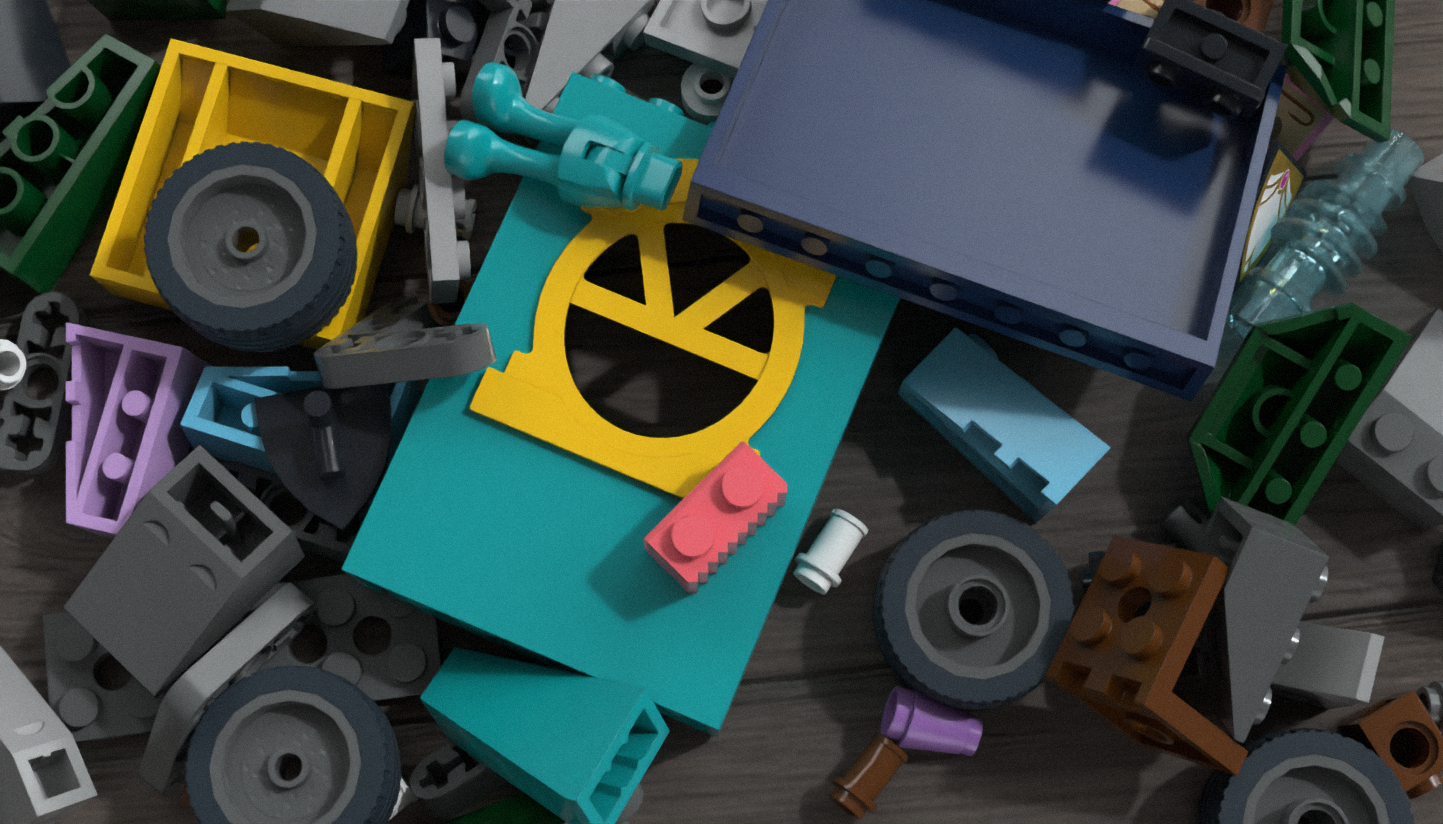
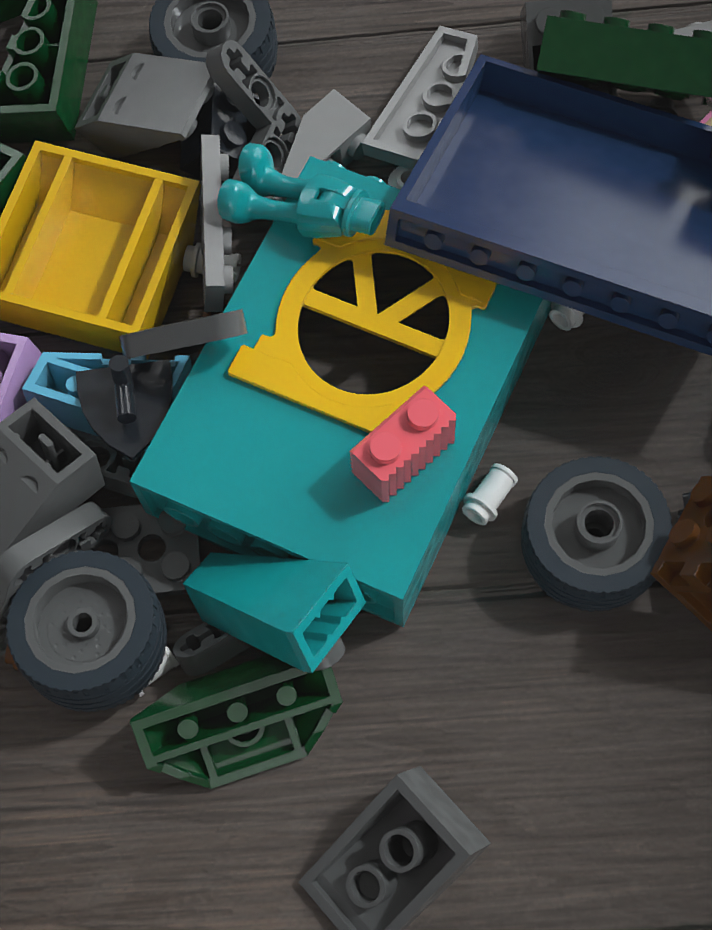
camera: 10 degrees right, 10 degrees down
(222, 208) = (79, 264): wheel -> none
(867, 777) = (516, 656): reddish brown pin -> none
(929, 725) = (563, 618): medium lavender cone -> none
(1001, 423) = (618, 404): medium azure wedge -> none

